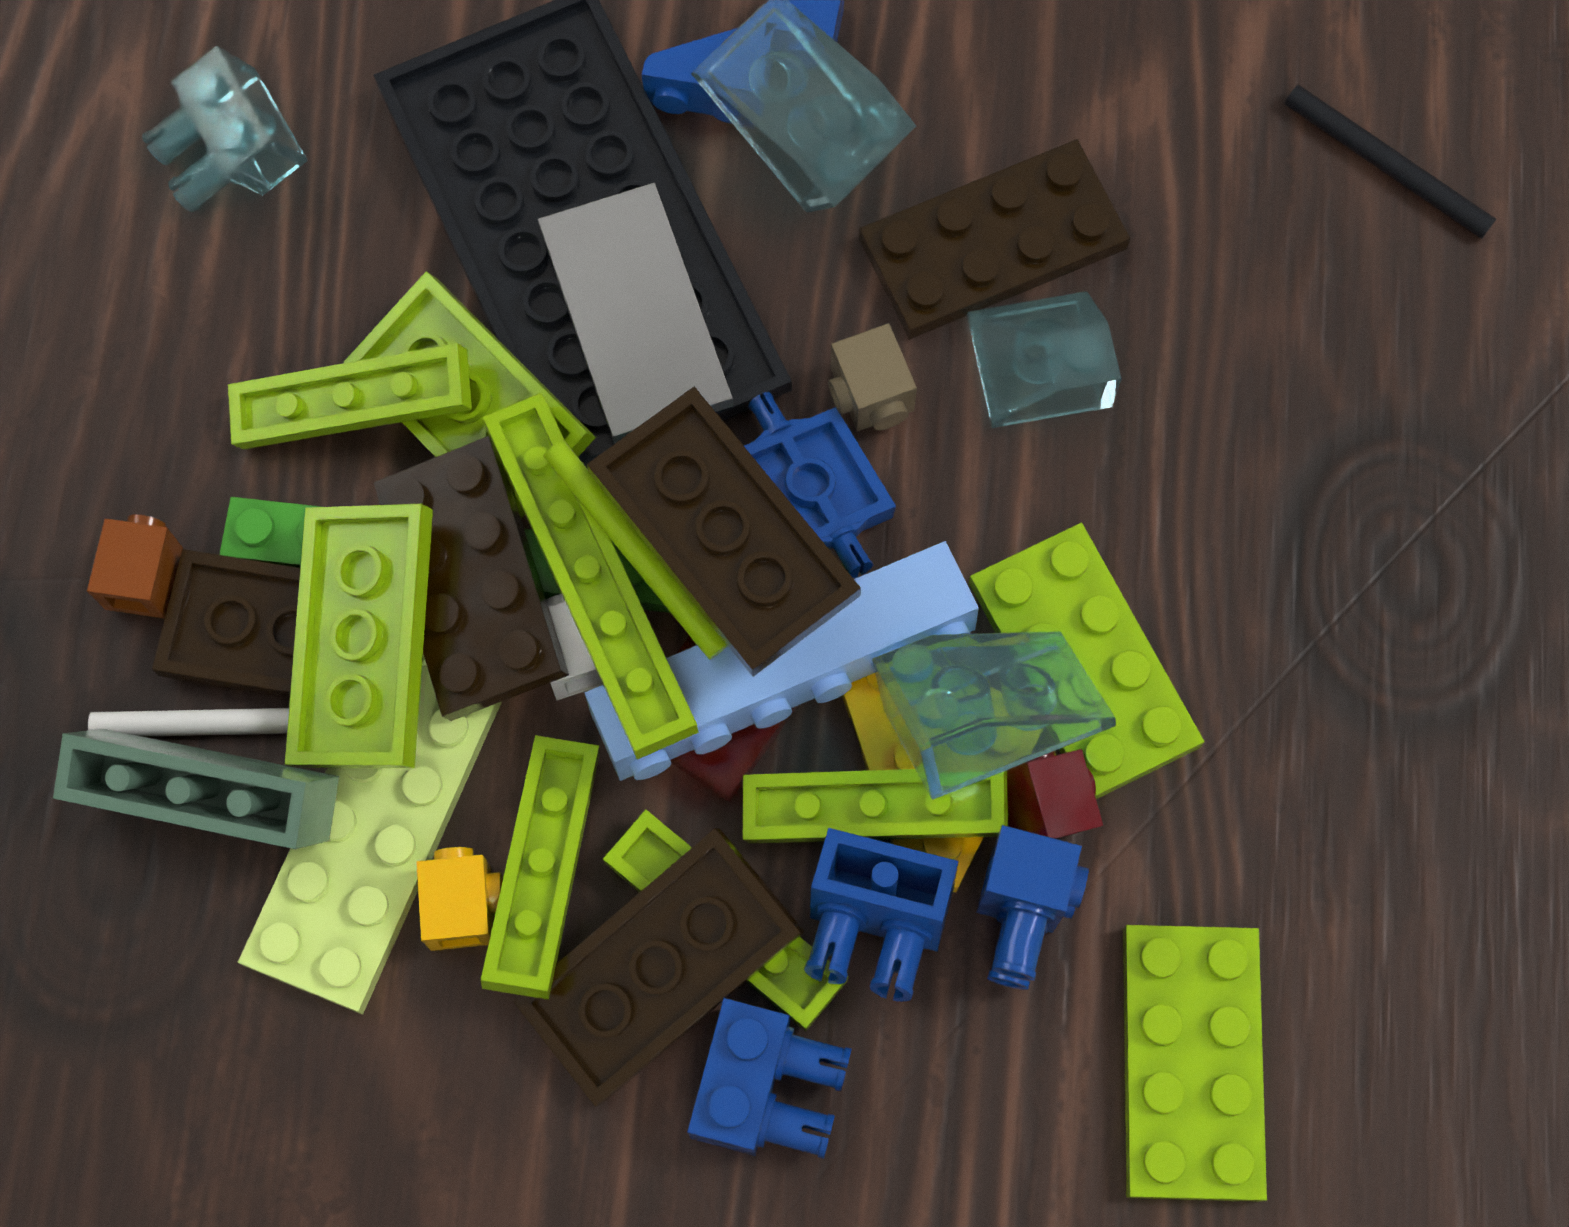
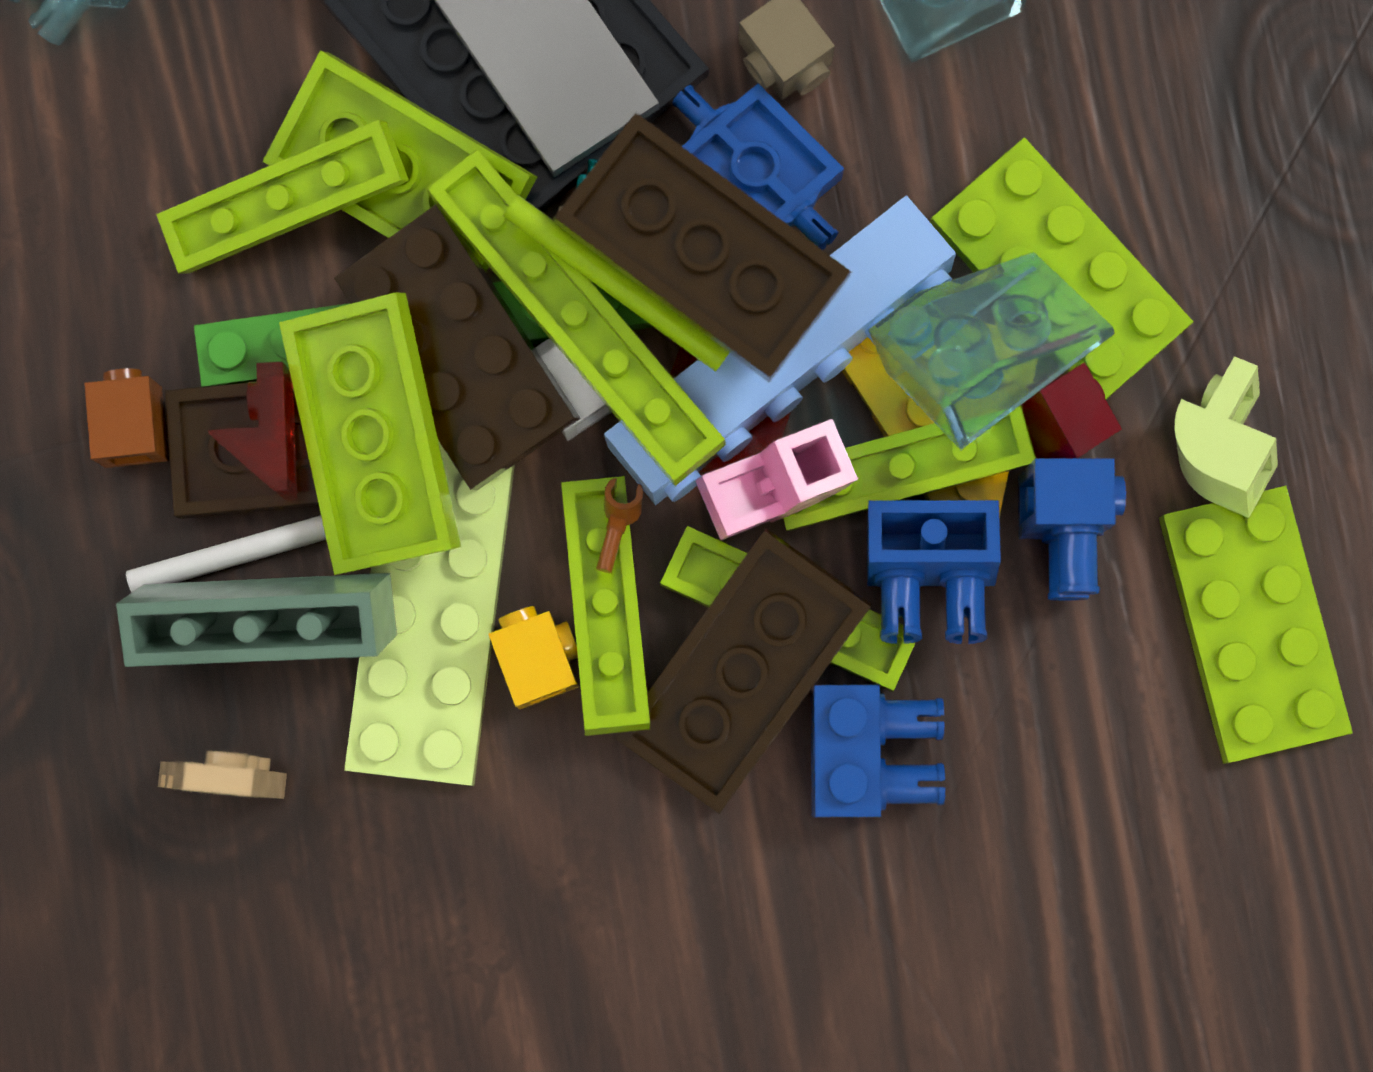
camera: 15 degrees left, 10 degrees up
(118, 931) = (225, 775): none -> tan wing
(263, 624) = (270, 447): none -> clear red slope
(580, 781) = (618, 516): none -> dark orange hand
(744, 787) = (778, 480): none -> bright pink brick
(1195, 867) = (1218, 452): none -> yellowish green brick

